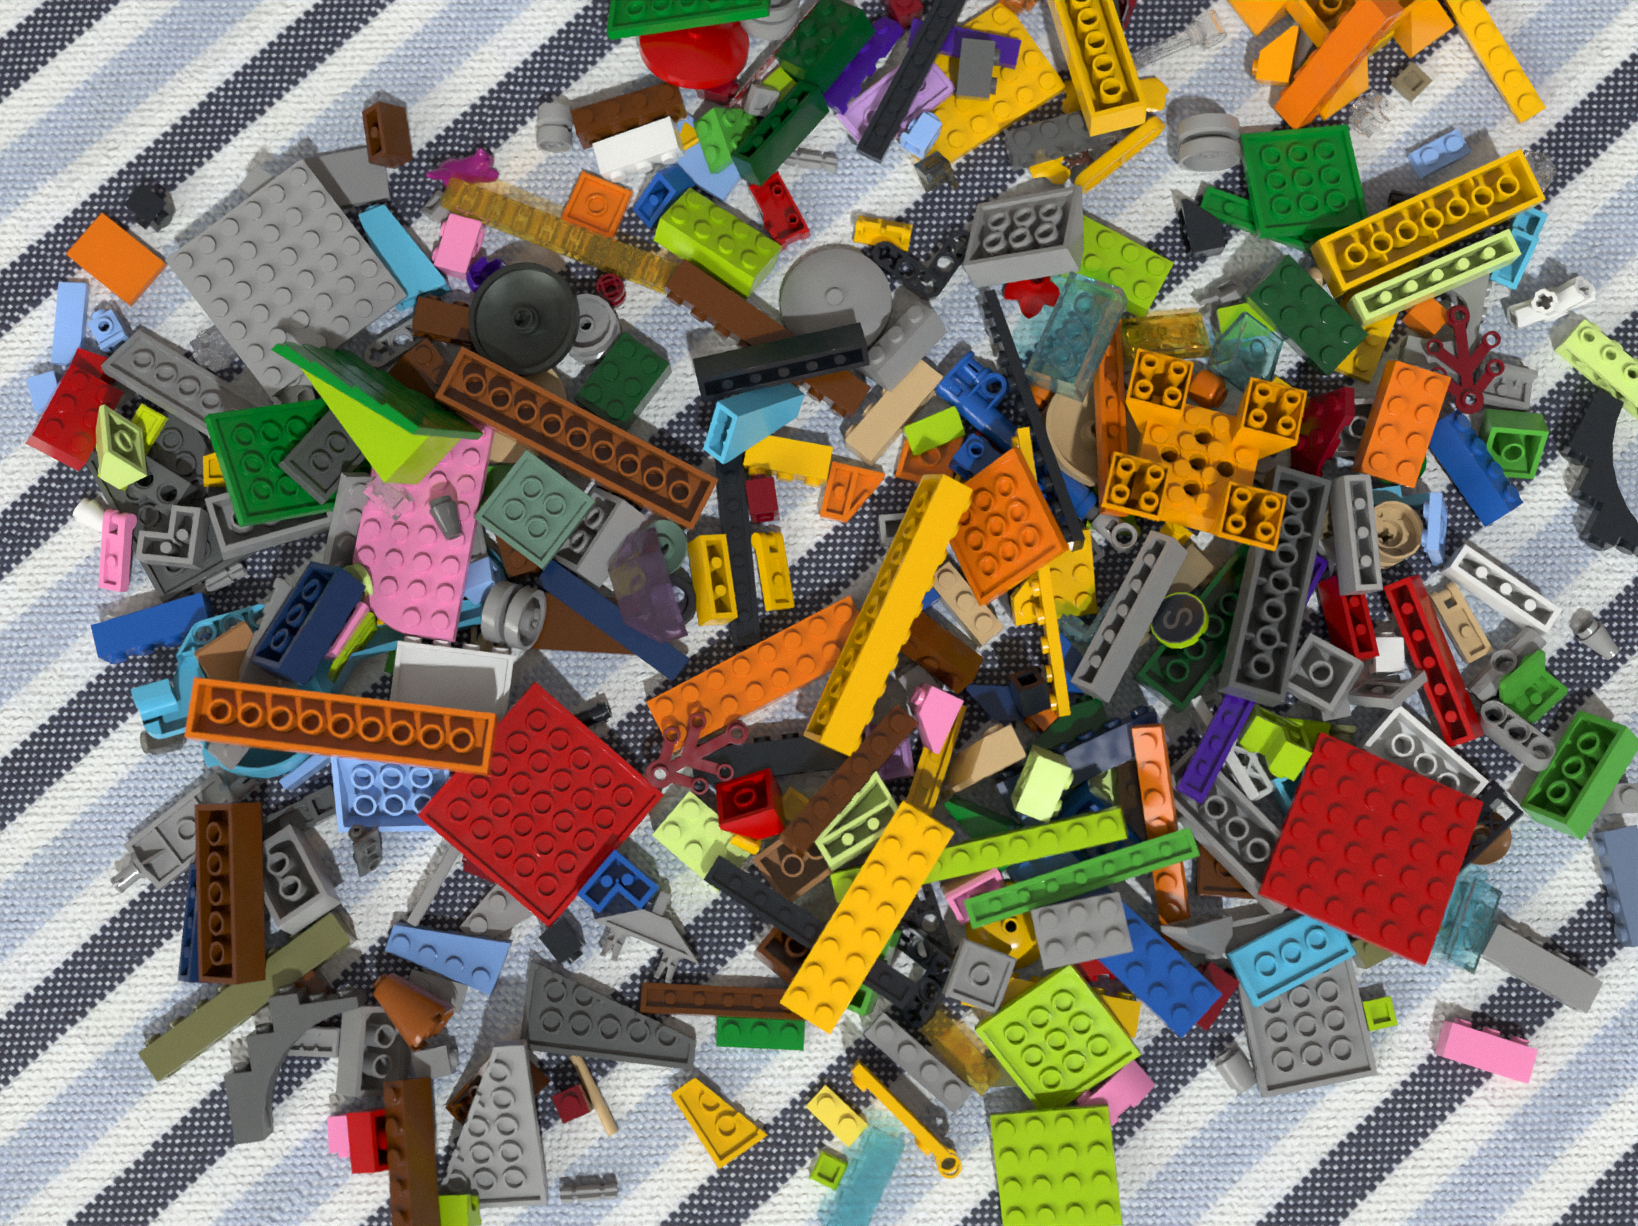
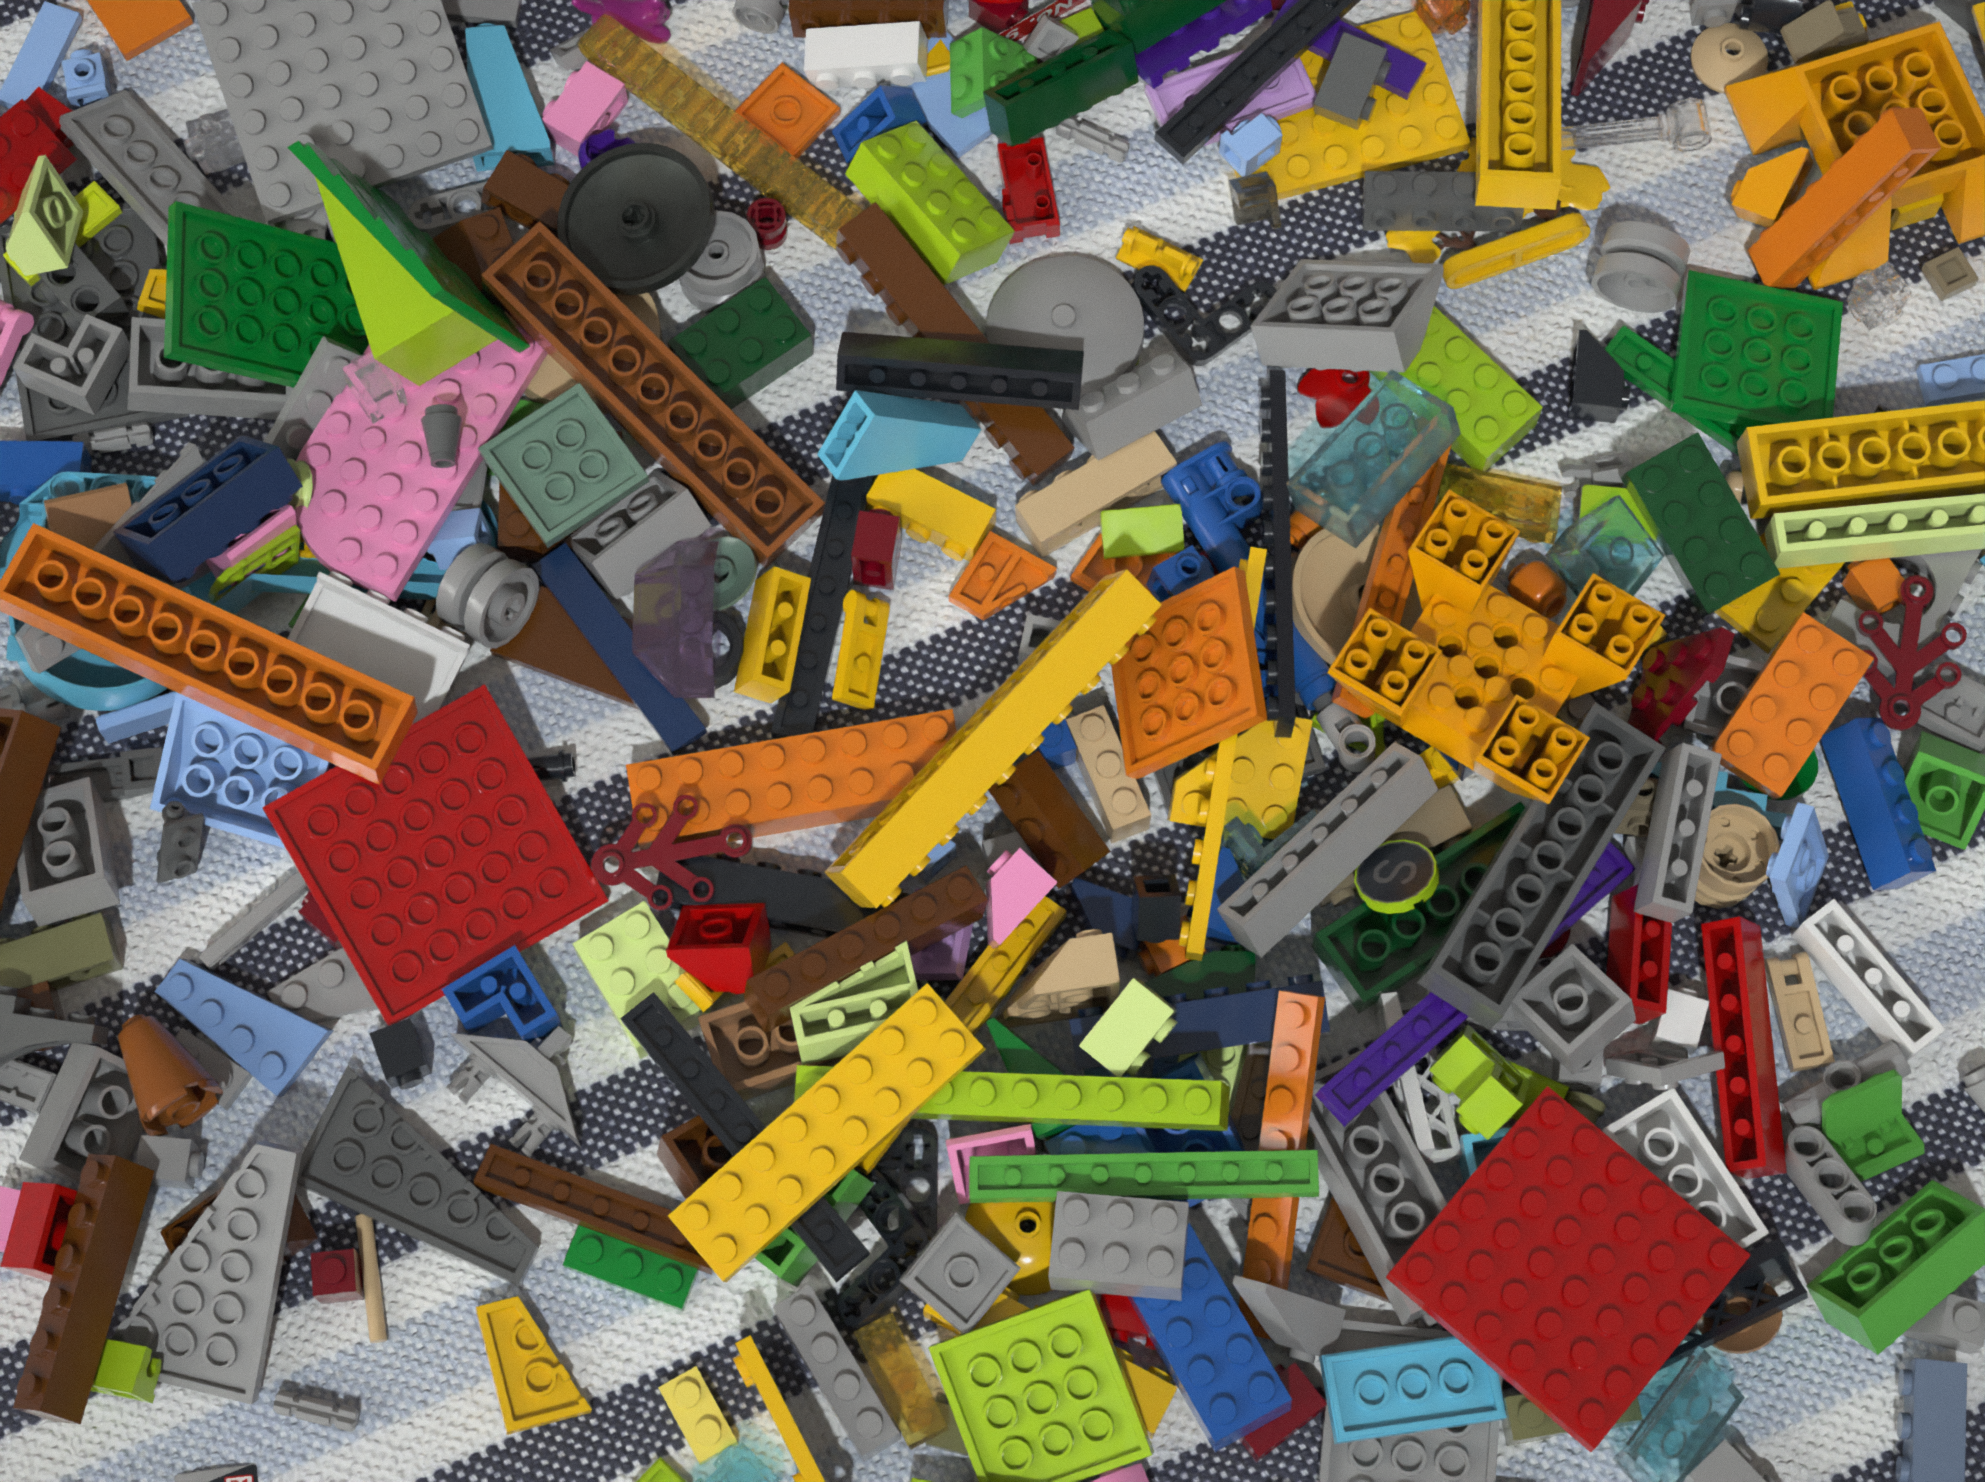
camera: 15 degrees right, 10 degrees down
(322, 457) = (304, 309): dark grey plate -> none

